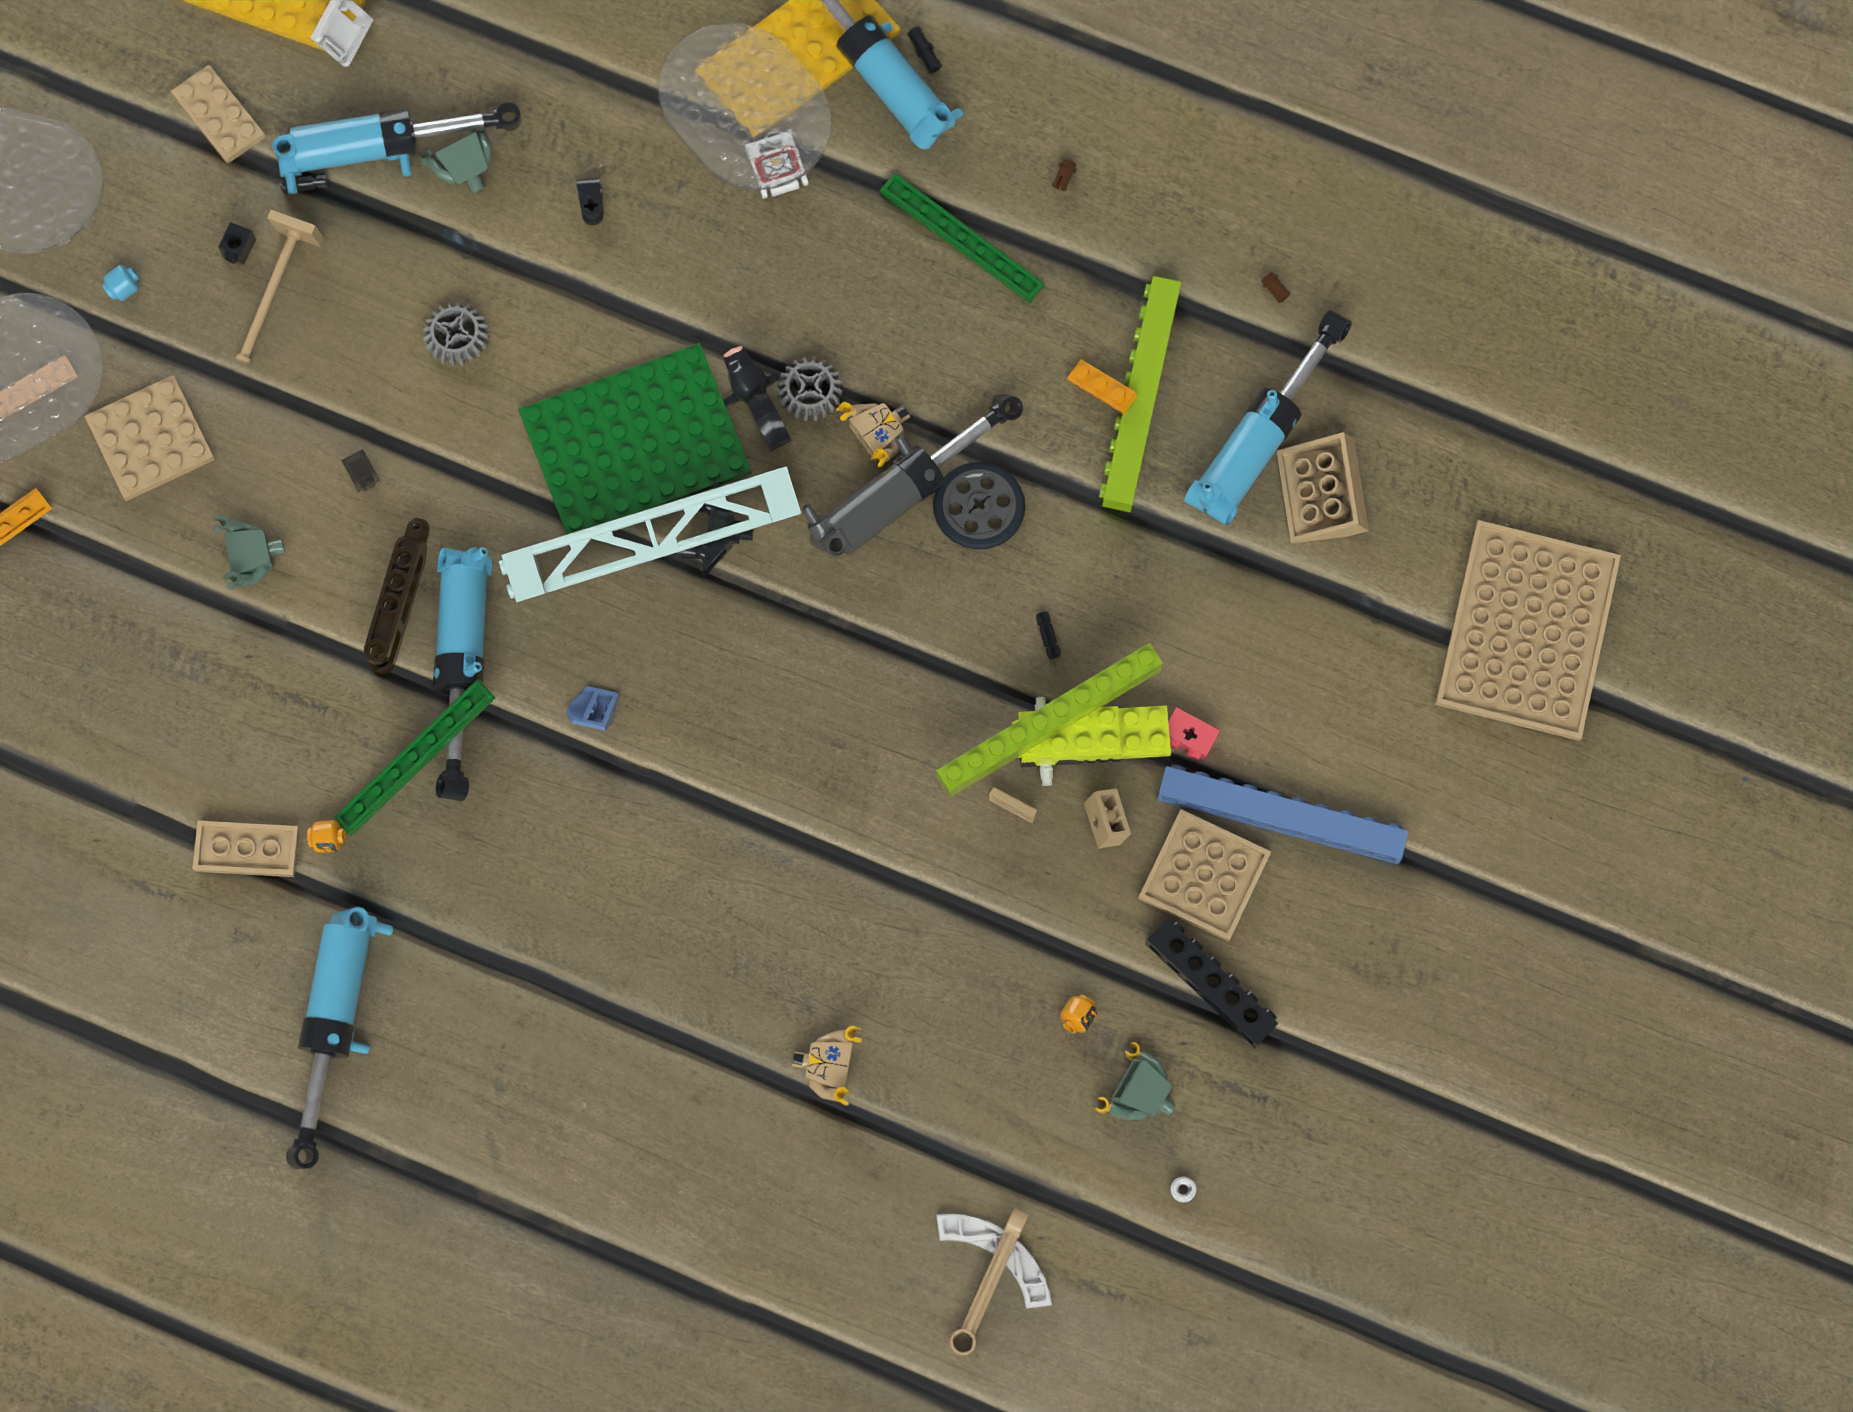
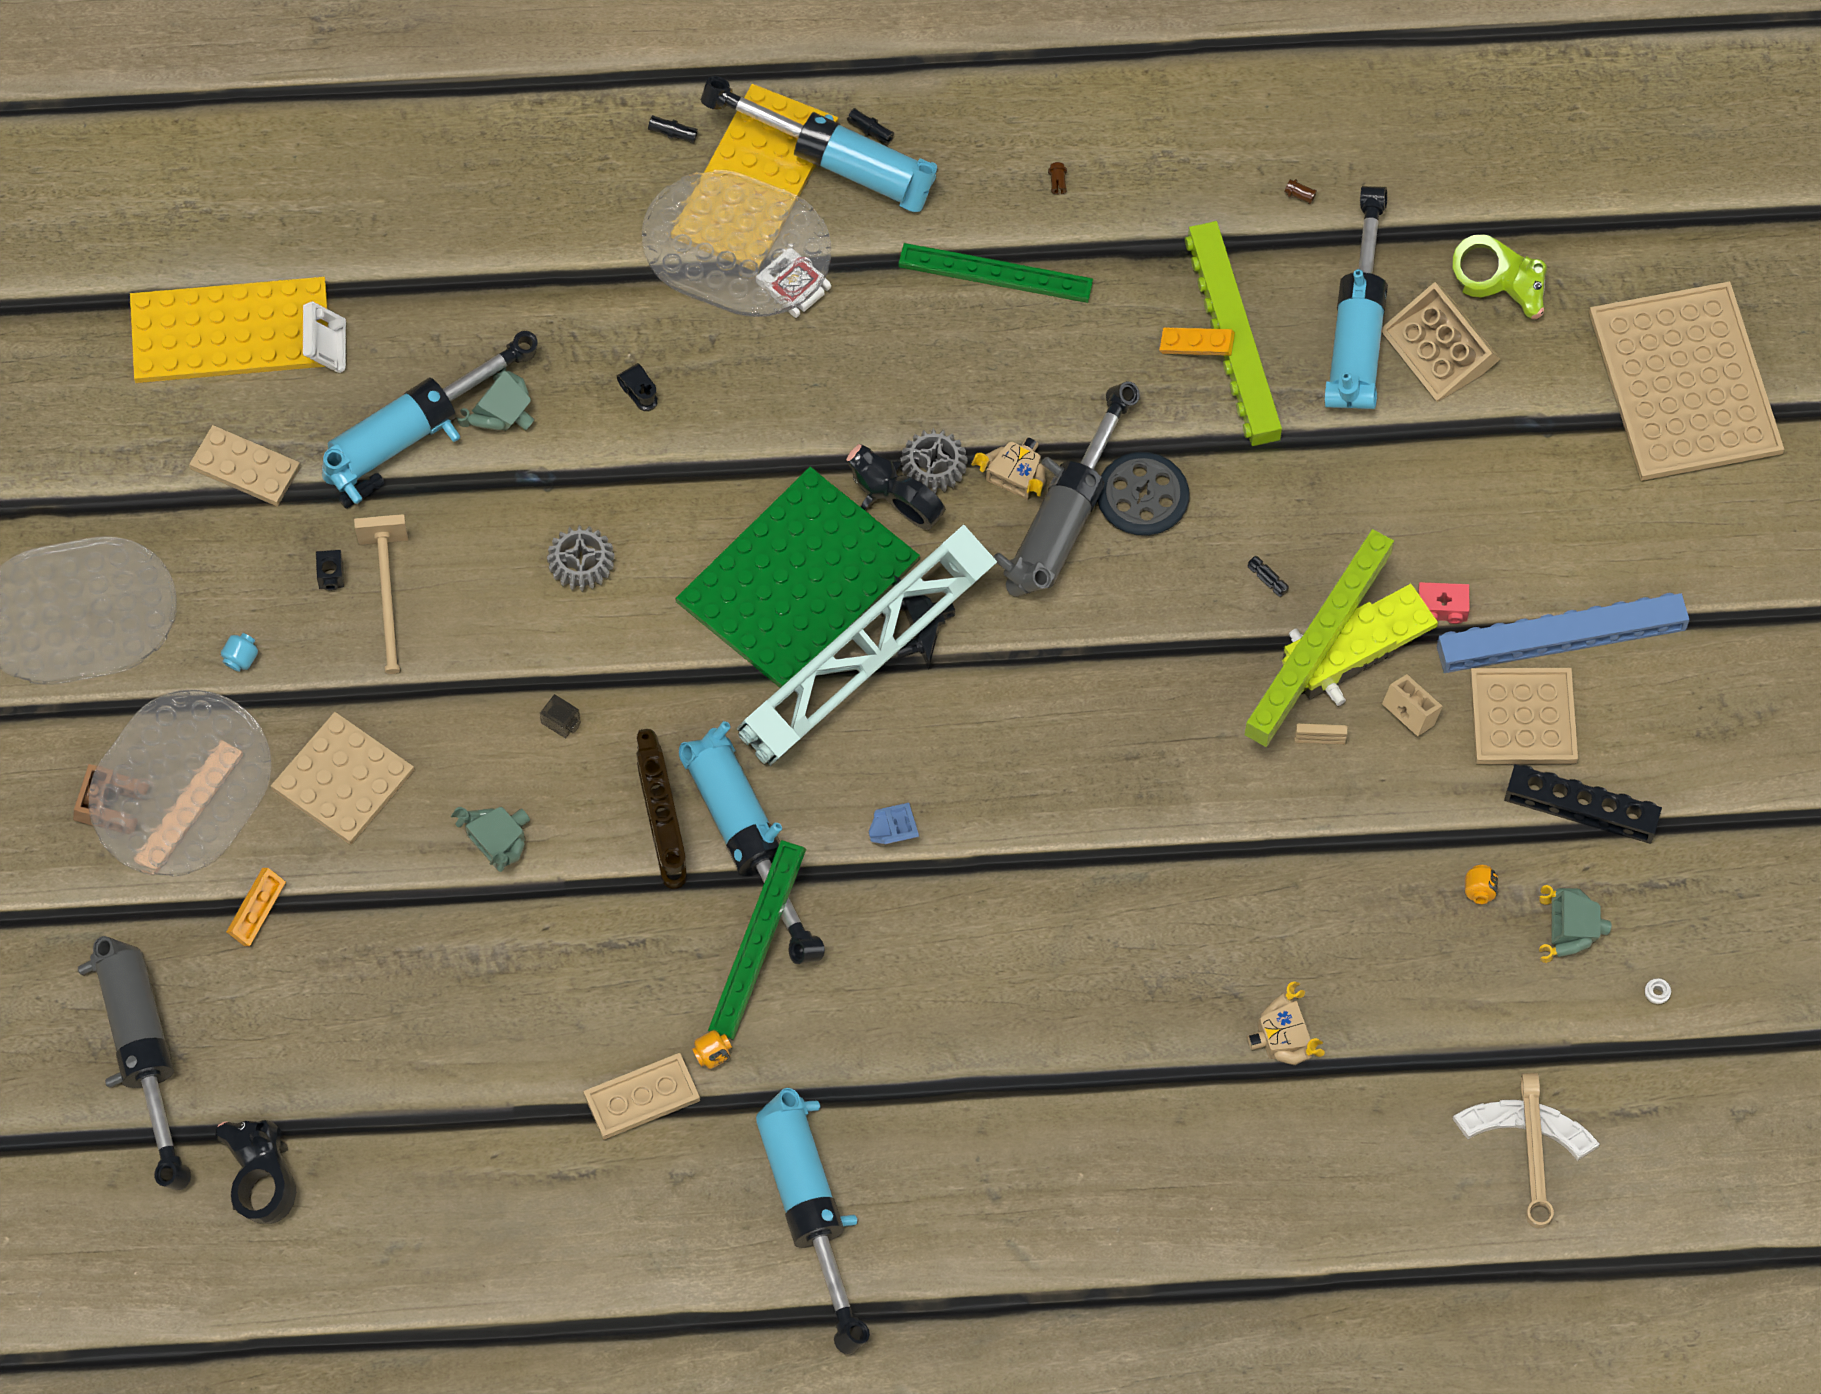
camera: 25 degrees left, 10 degrees down
(1425, 458) = (1517, 275): none -> lime animal

